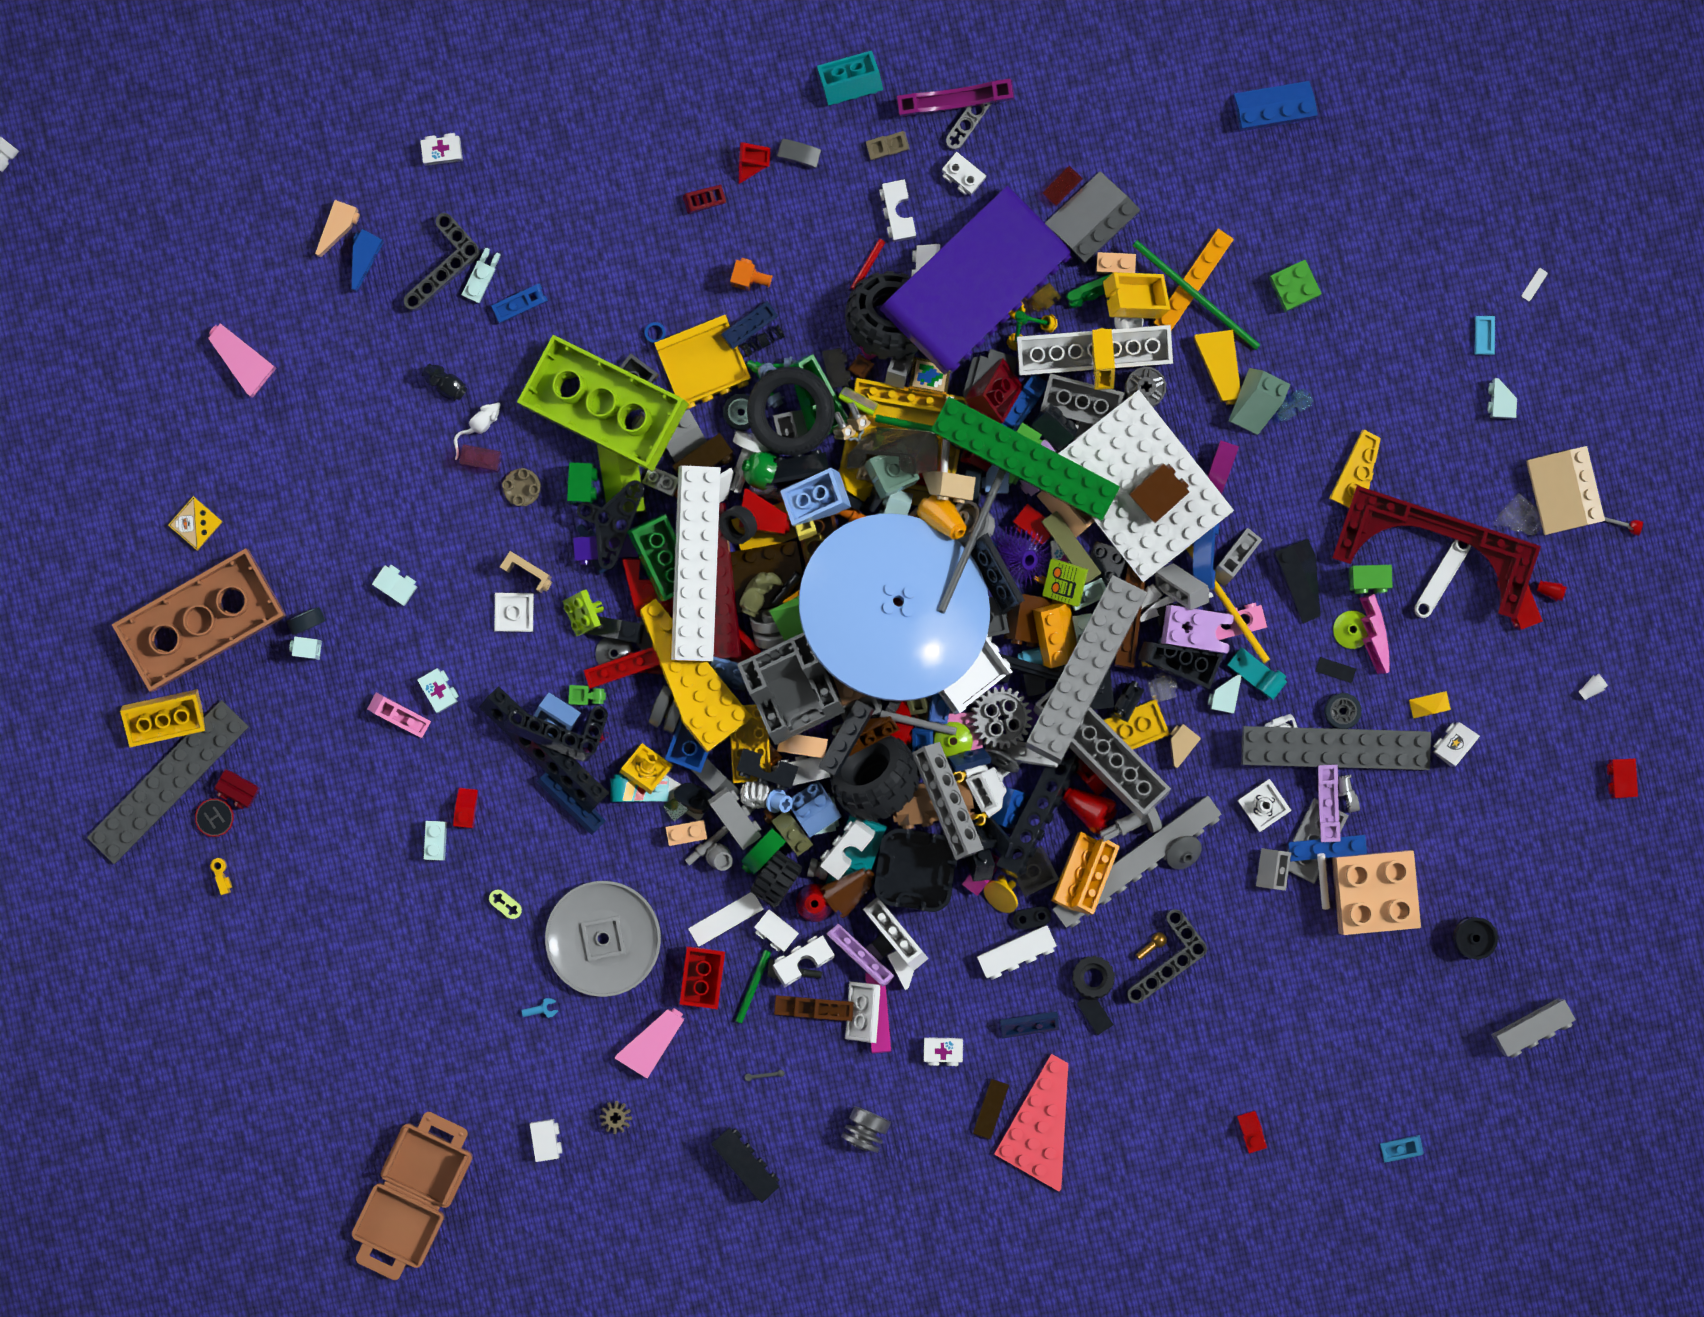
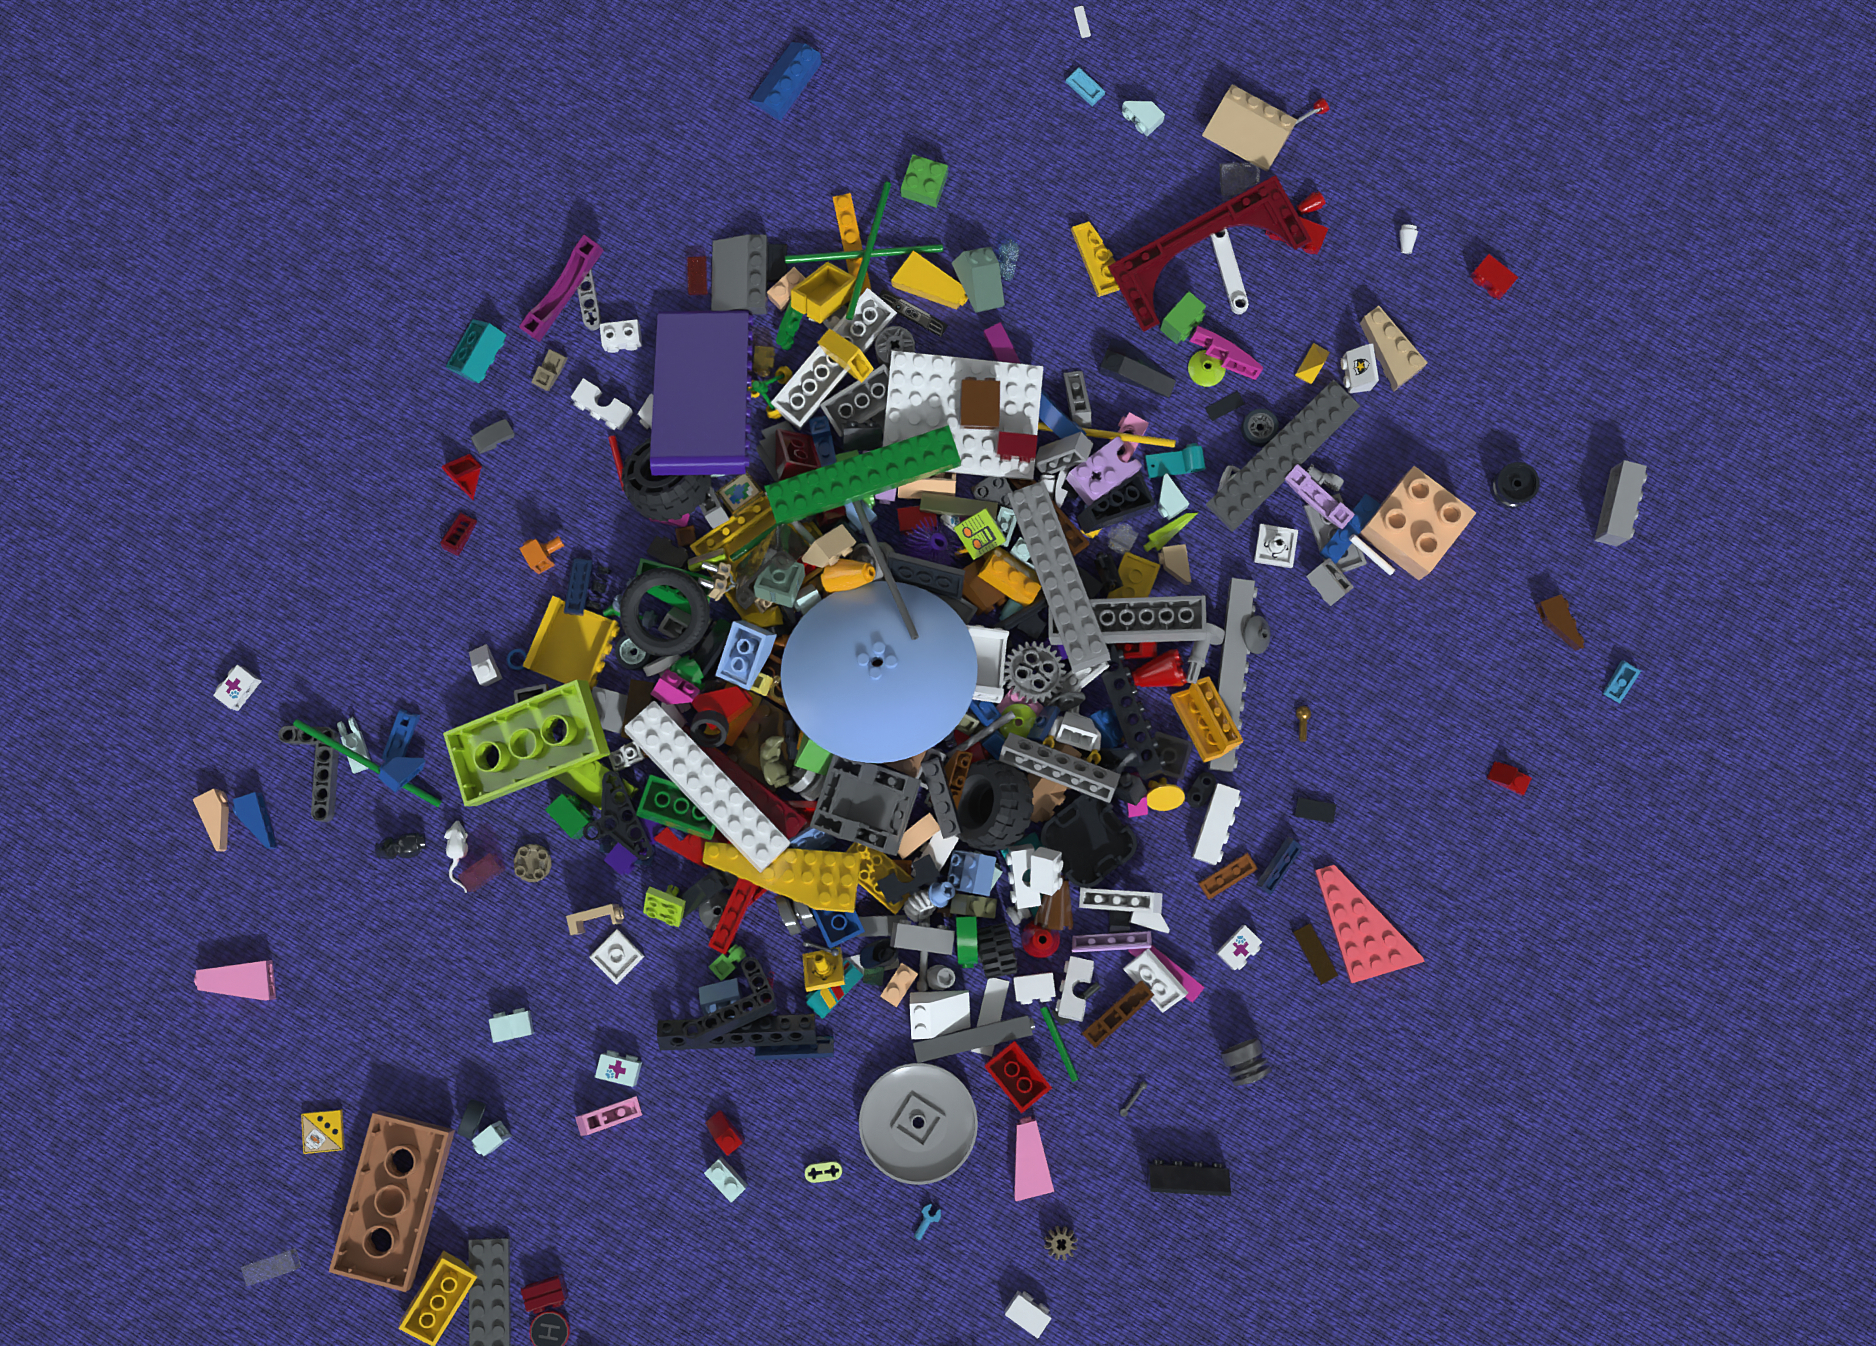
camera: 40 degrees left, 5 degrees down
(71, 579) = (271, 1267): none -> clear slope
(479, 299) = (362, 760): none -> green piece
(495, 329) = (400, 771): none -> blue slope
(628, 313) = (484, 666): none -> white slope
(665, 765) = (834, 952): none -> dark grey hinge
(693, 880) = (938, 1013): none -> white slope
(699, 921) = (973, 1038): none -> dark grey brick
(741, 472) = (674, 689): none -> dark pink slope
(865, 860) = (1046, 871): none -> white piece
(987, 995) = (1227, 876): none -> dark orange tile
(1093, 963) = (1292, 772): black tyre -> none
(1129, 234) = (776, 262): none -> black tile
(1153, 548) = (1016, 446): none -> dark red brick
(1172, 961) = (1329, 717): dark grey beam -> none
(1186, 371) = (913, 313): none -> sticker
(1197, 716) = (1164, 534): none -> lime bar
(1200, 297) = (868, 251): none -> green piece
(1404, 1059) = (1557, 618): none -> reddish brown slope
(1495, 753) = (1392, 348): none -> tan wedge

